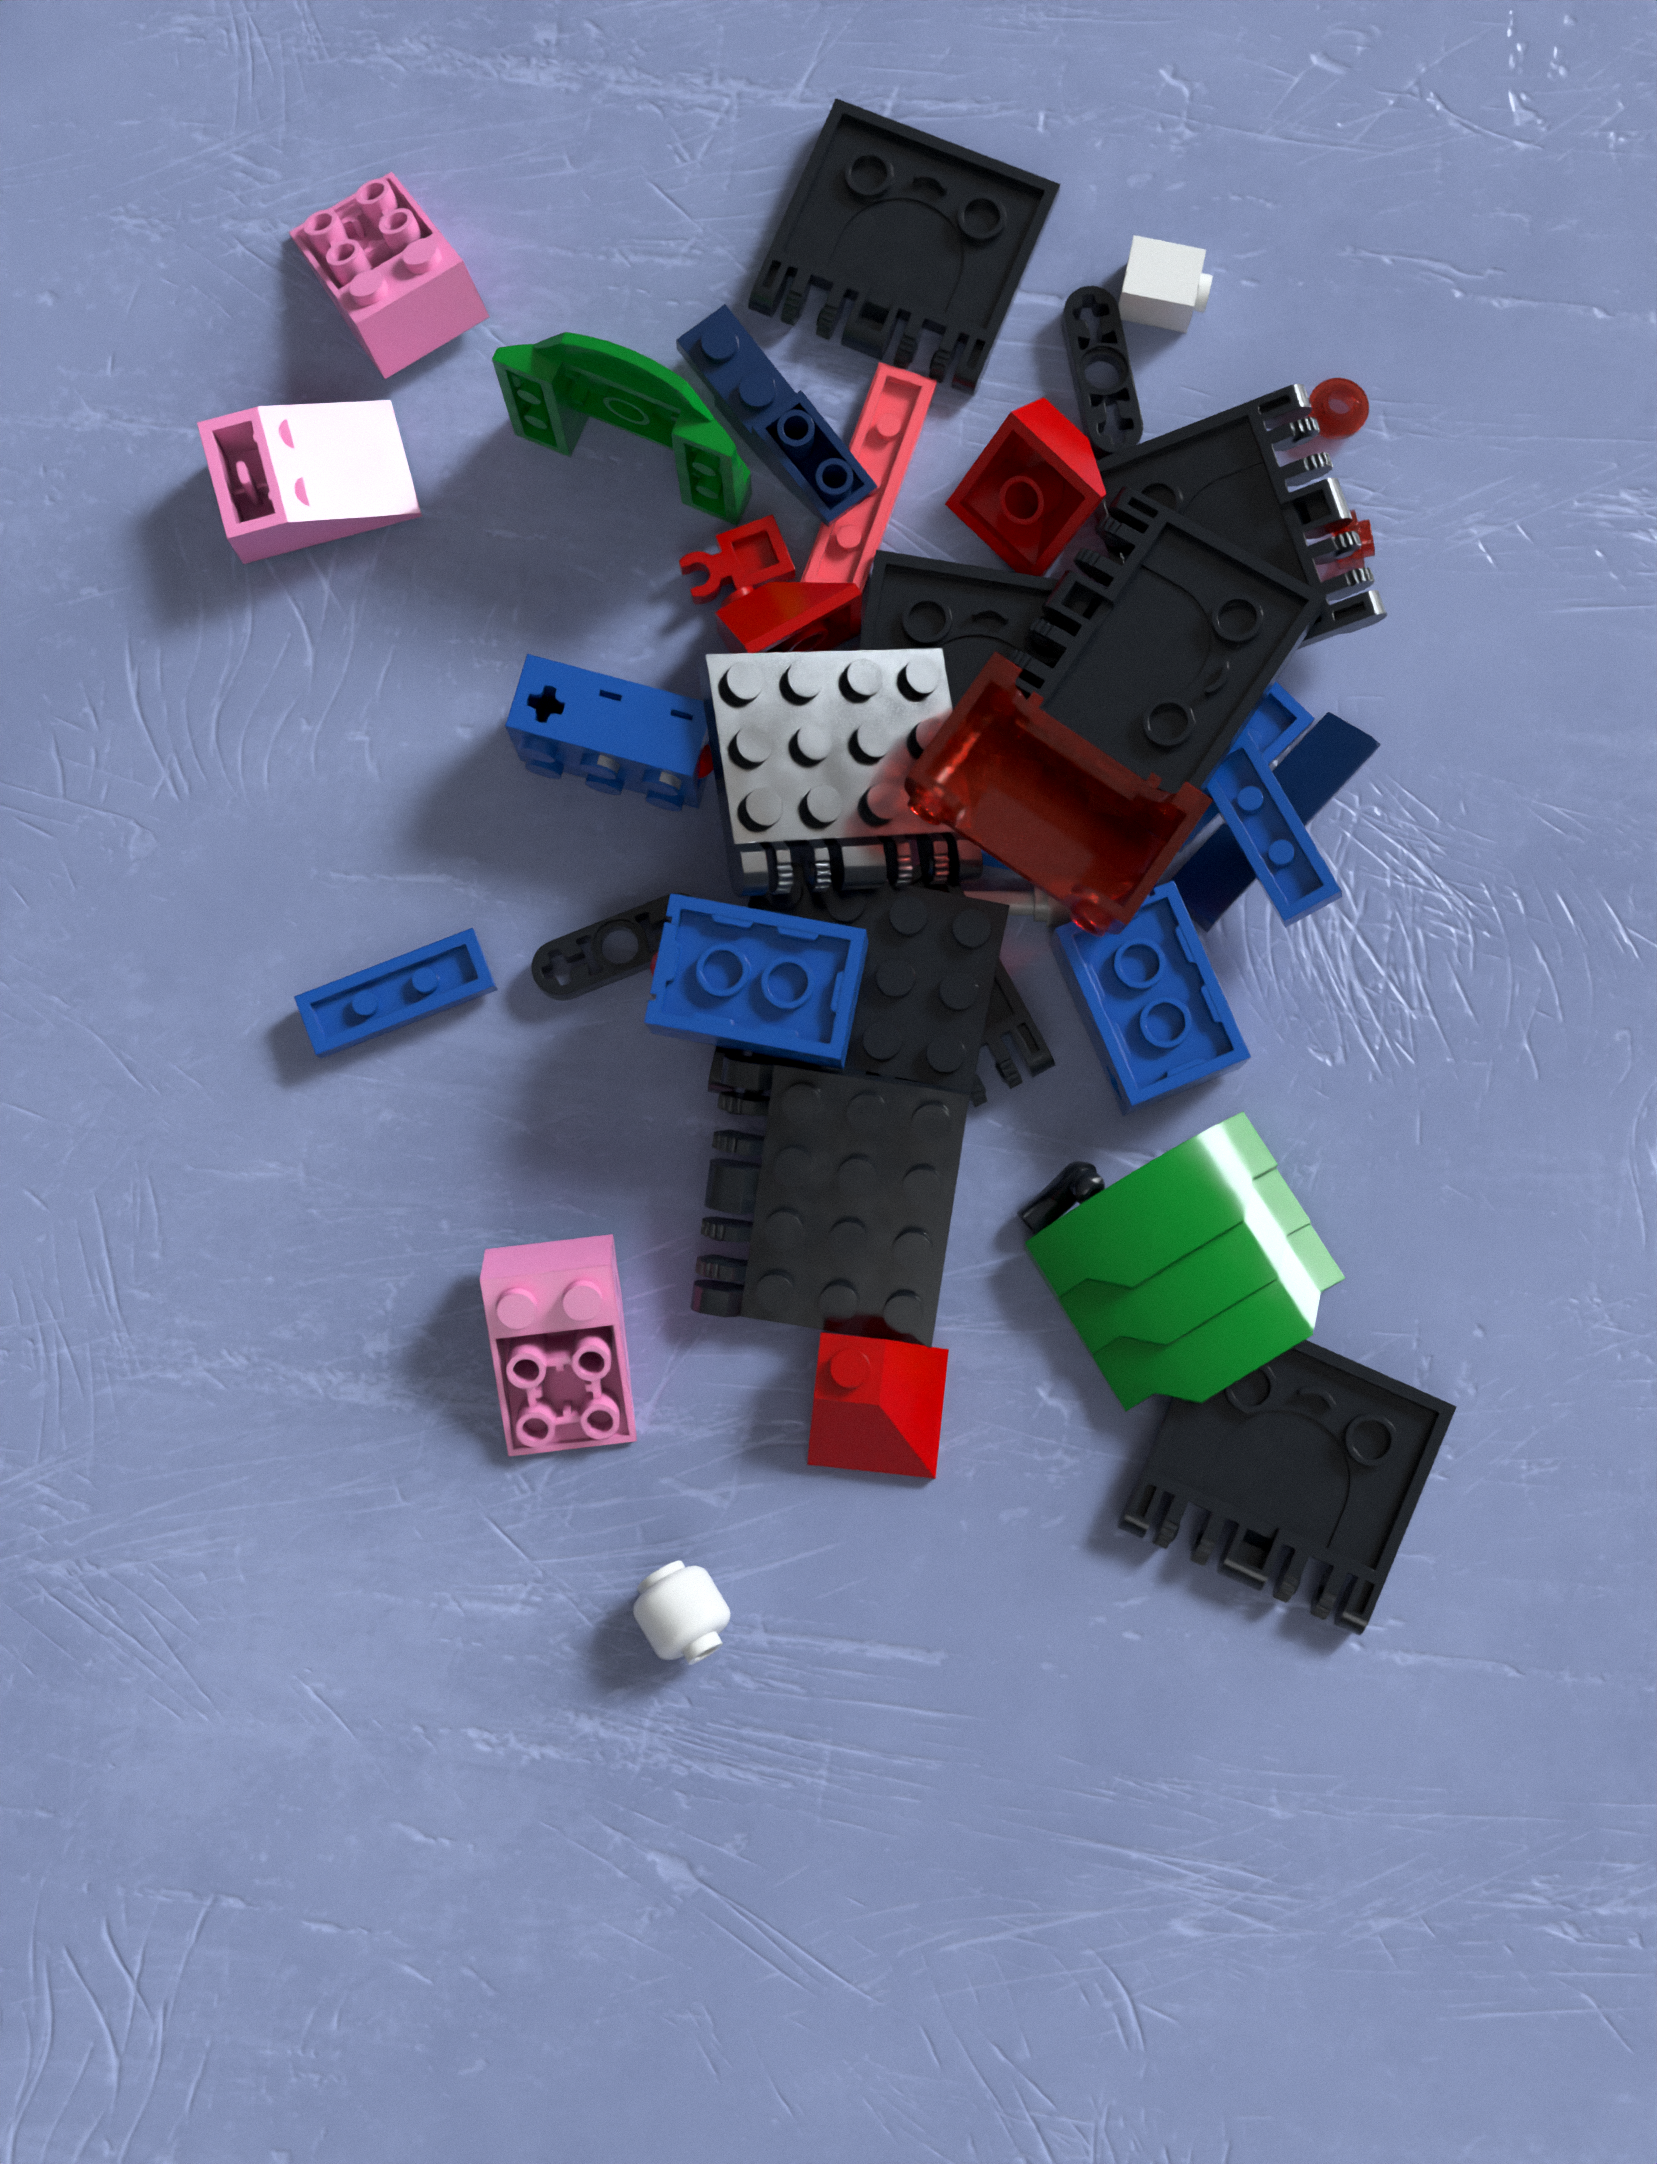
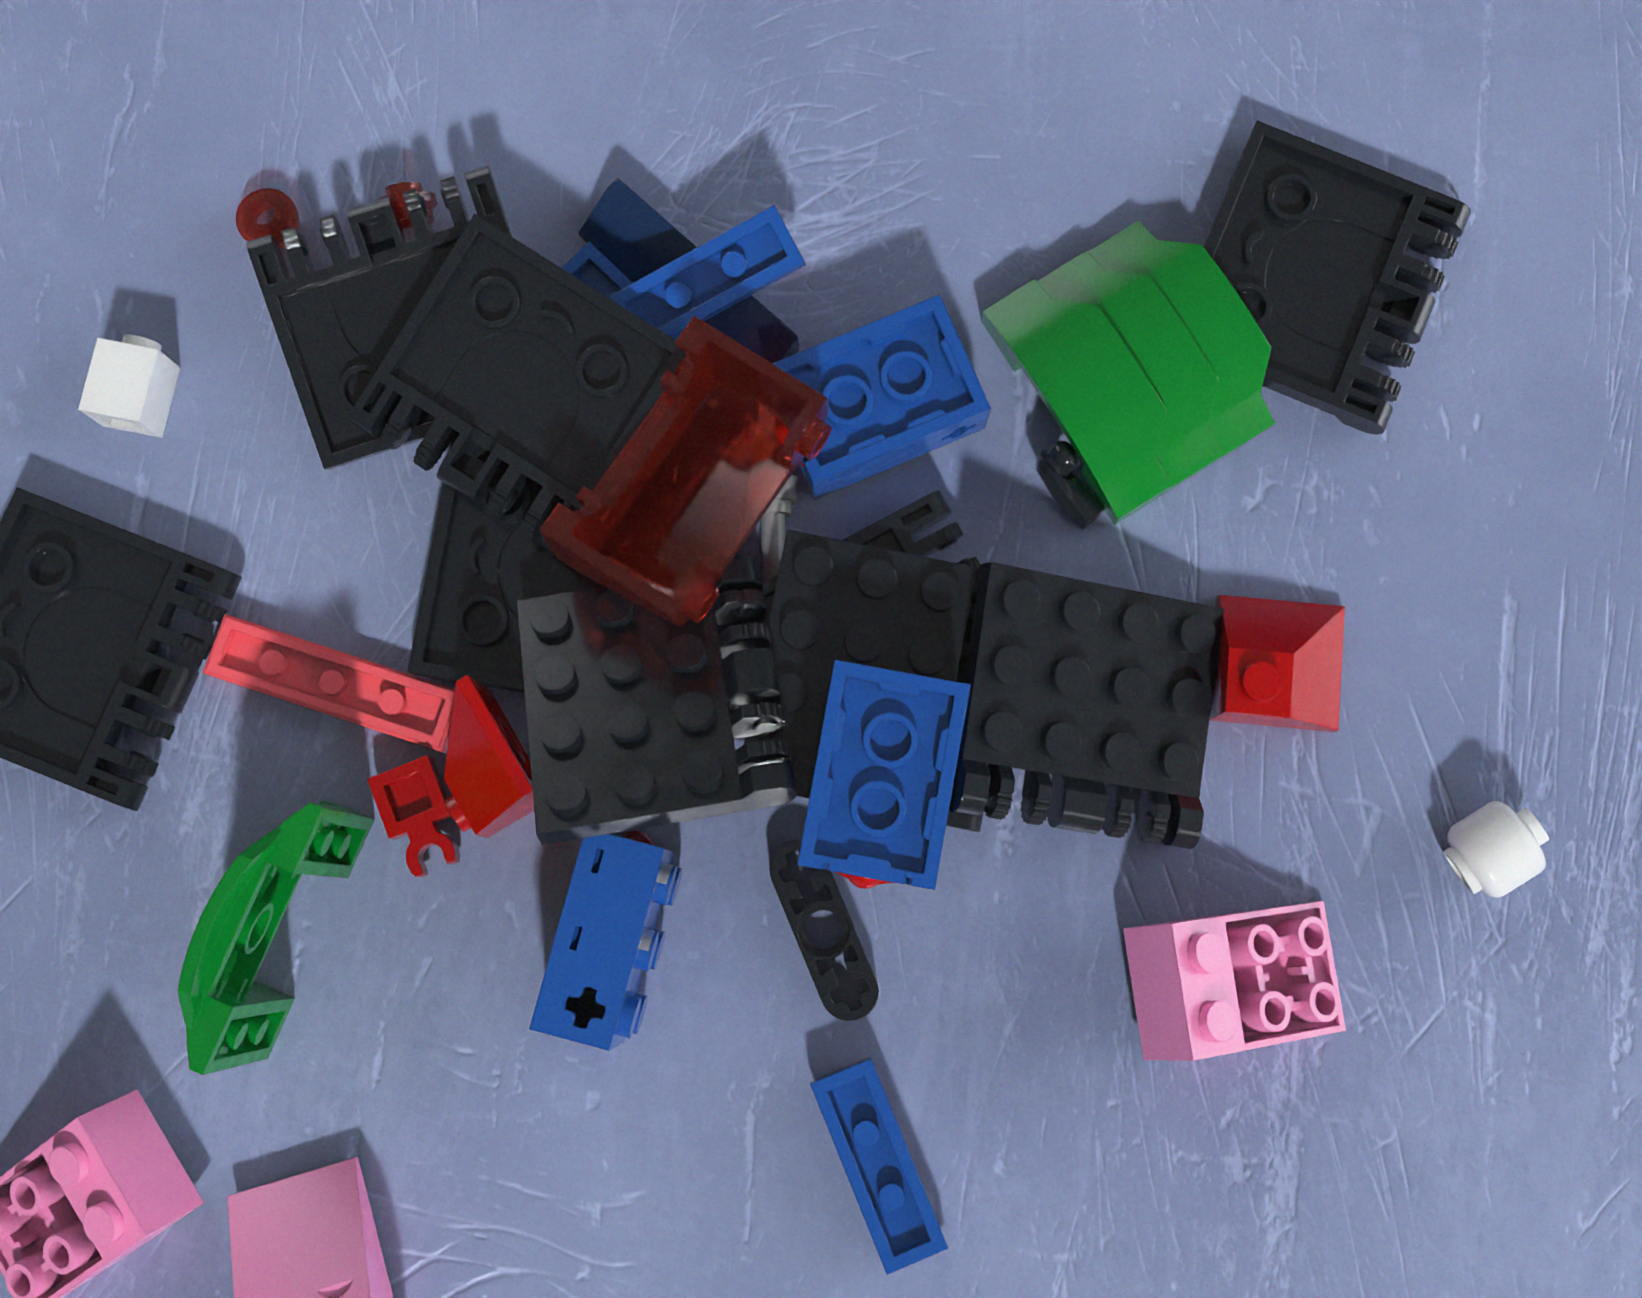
camera: 90 degrees left, 0 degrees up
(775, 419) = (263, 780): dark blue slope -> none
(1030, 488) = (347, 514): red slope -> none
(1080, 356) = (182, 473): black beam -> none

